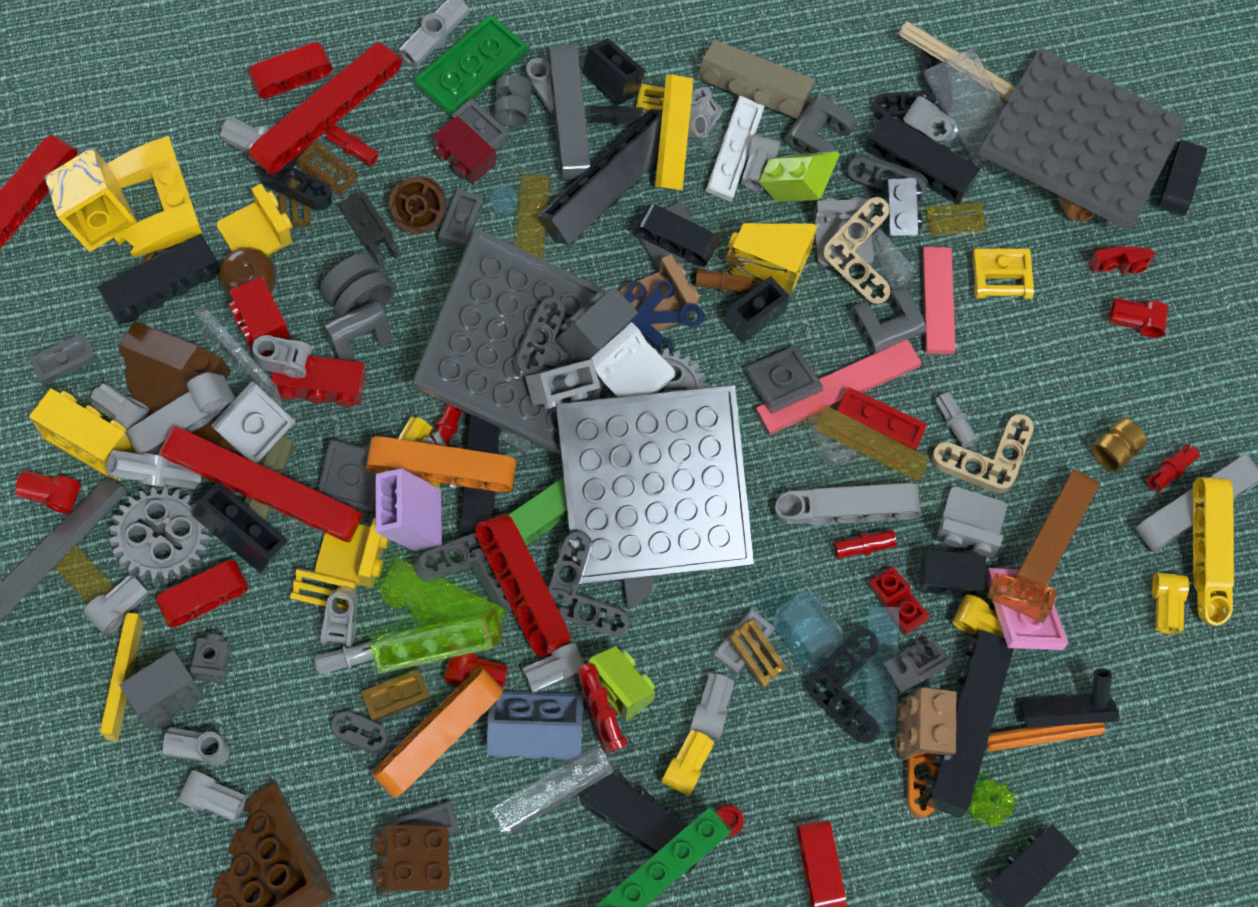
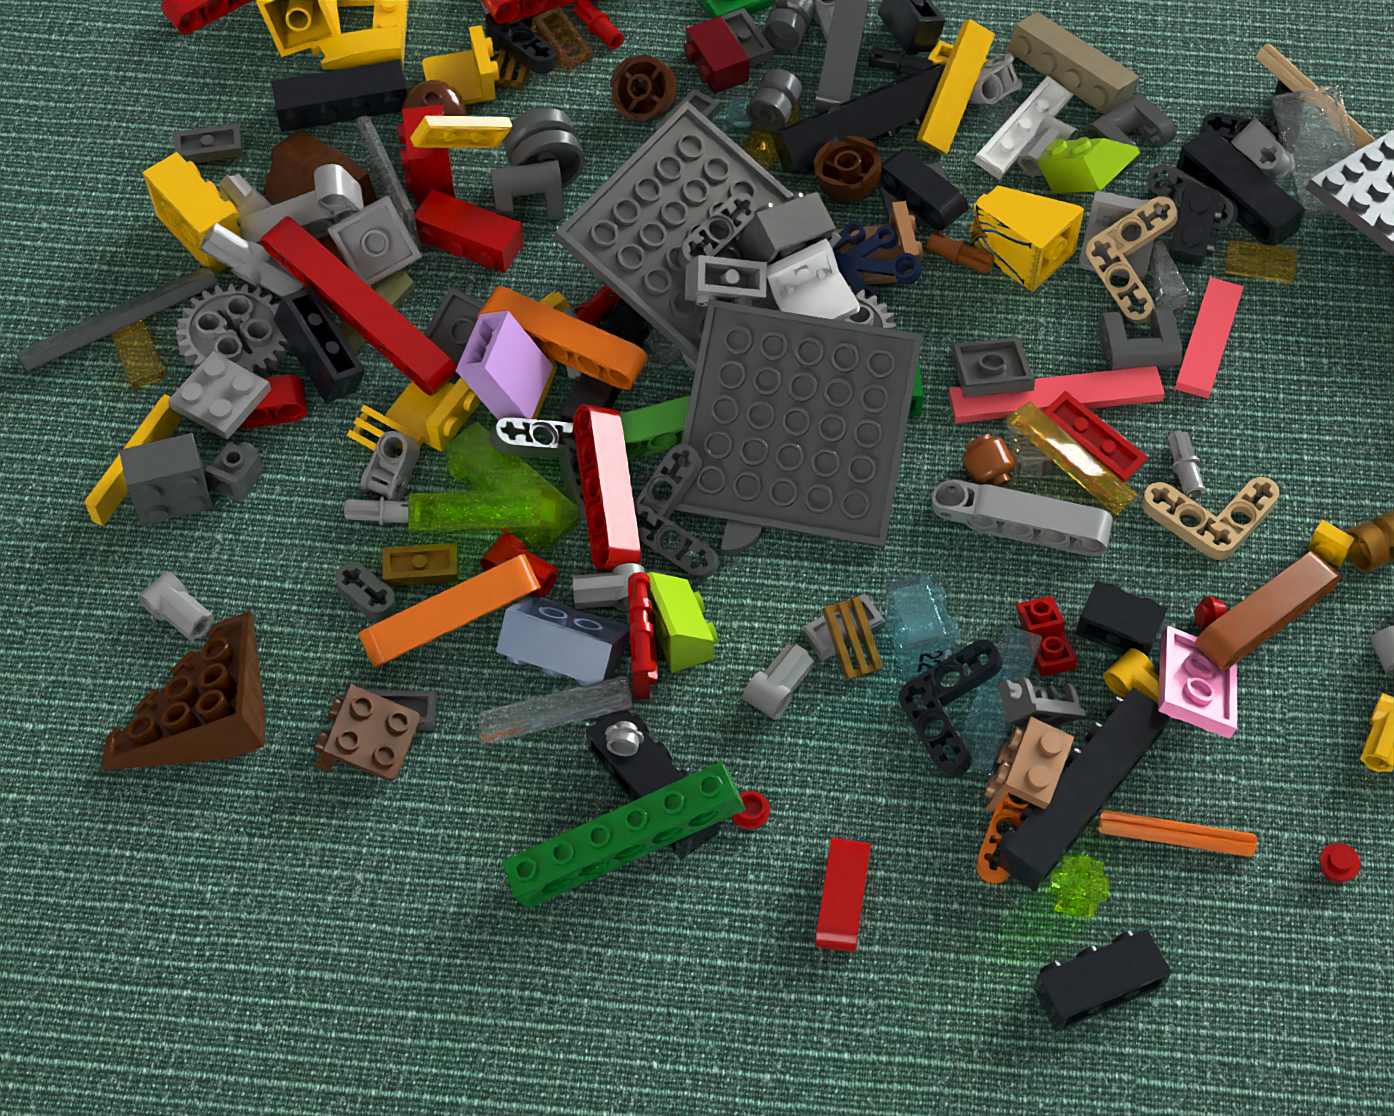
camera: 25 degrees right, 10 degrees down
(56, 493) = (144, 266): red piece -> none
(109, 610) = (145, 390): light grey piece -> none
(175, 600) = (219, 395): none -> light grey plate
(193, 746) = (184, 551): light grey piece -> none
(288, 355) = (432, 188): light grey piece -> none
(290, 301) = (461, 132): none -> yellow tile
(369, 226) = (583, 102): pearl dark grey hinge -> none
(530, 186) = (774, 100): none -> dark grey wheel
(613, 233) = (848, 169): none -> reddish brown cylinder
(618, 801) = (623, 738): none -> light grey plate
(686, 767) = (720, 738): yellow piece -> none
(756, 309) = (986, 286): black brick -> none
(809, 465) = (988, 461): none -> dark orange head
(865, 544) = (1027, 563): red pin -> none
(972, 522) = (1166, 575): light grey bracket -> none
(1003, 265) = (1299, 319): yellow plate -> none
(1015, 545) = (1209, 611): none -> red plate
(1032, 598) = (1197, 662): clear orange slope -> none
(1074, 710) = (1250, 821): black piece -> none
(1083, 457) = (1331, 543): none -> yellow plate
(1166, 719) = (1339, 862): none -> red plate

